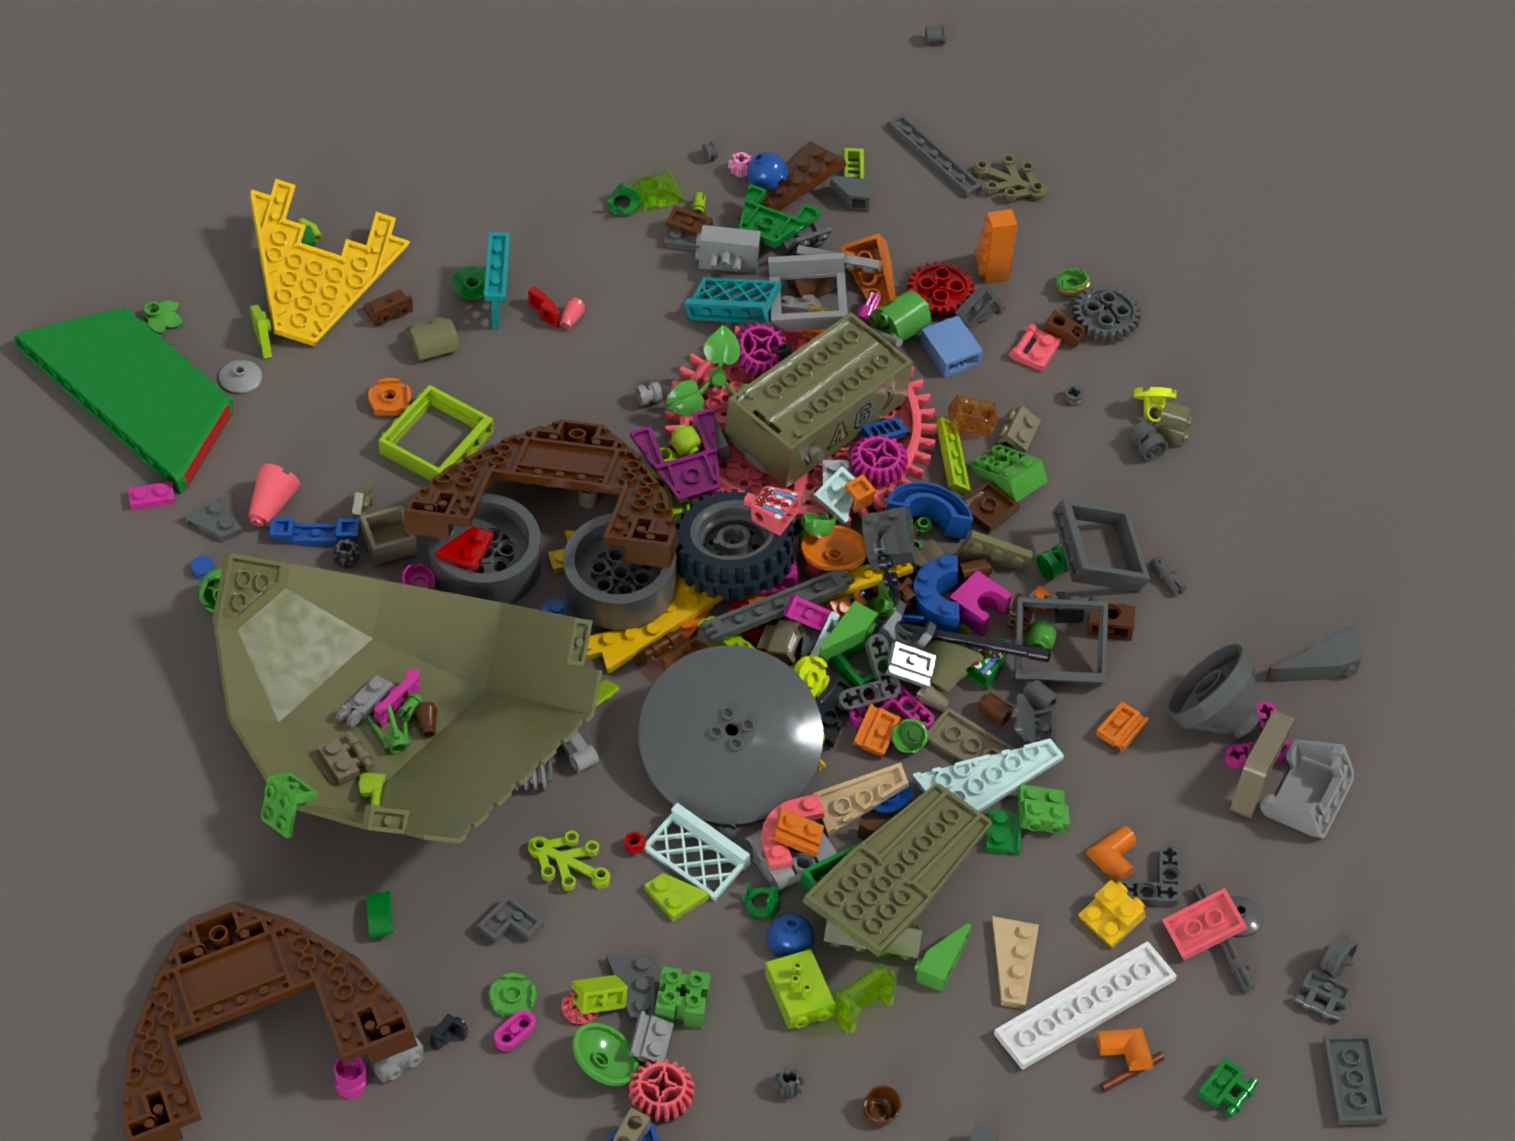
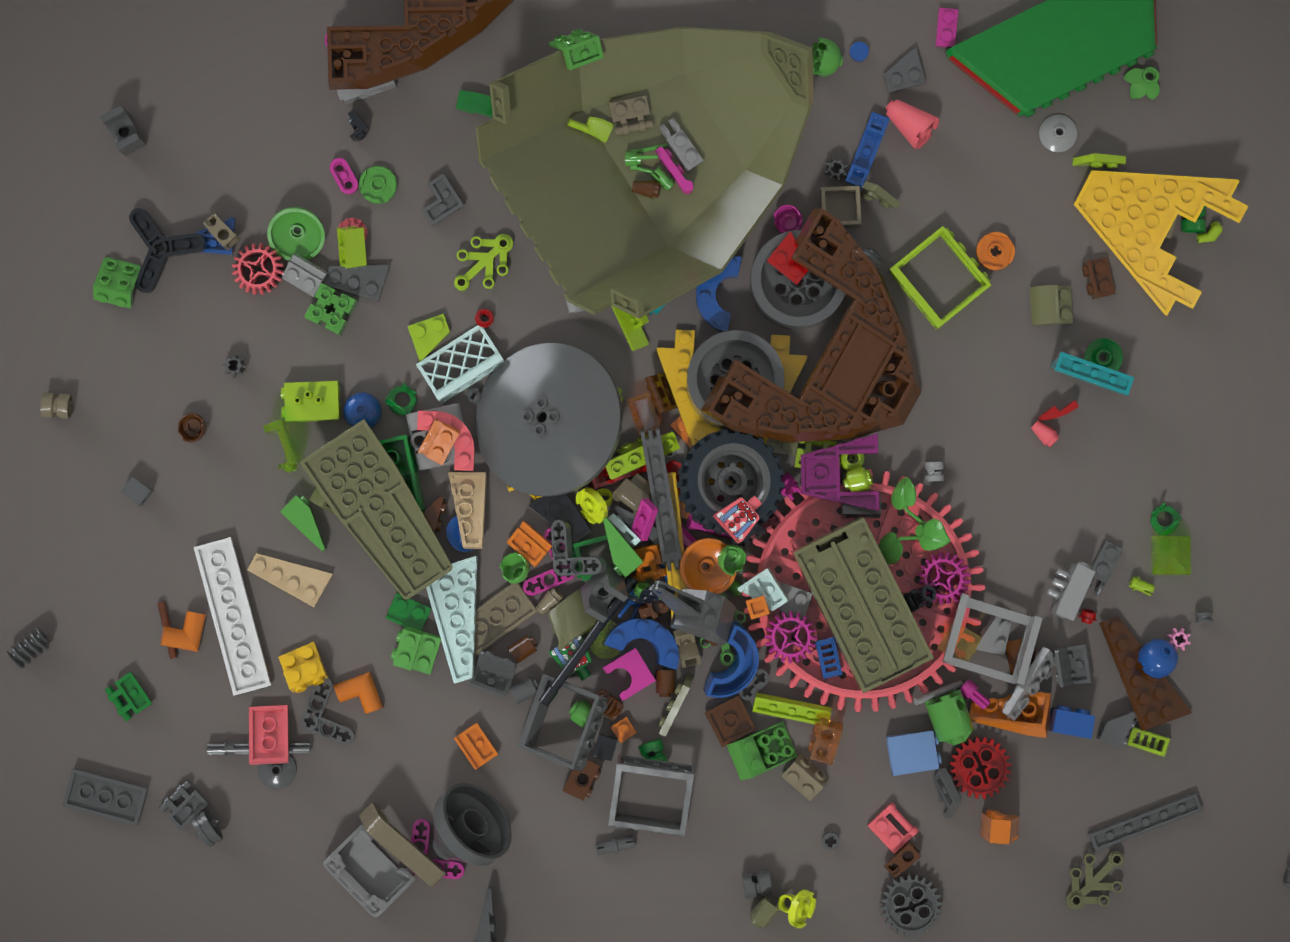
camera: 110 degrees right, 35 degrees up
(687, 221) = (1116, 568): reddish brown panel -> none
(733, 308) = (1005, 563): teal fence -> none
(774, 225) = (1089, 634): green wing -> none
(861, 217) = (1071, 723): none -> blue piece
(910, 664) = (571, 588): plate -> none
(1072, 281) = (954, 889): bright green hair -> none

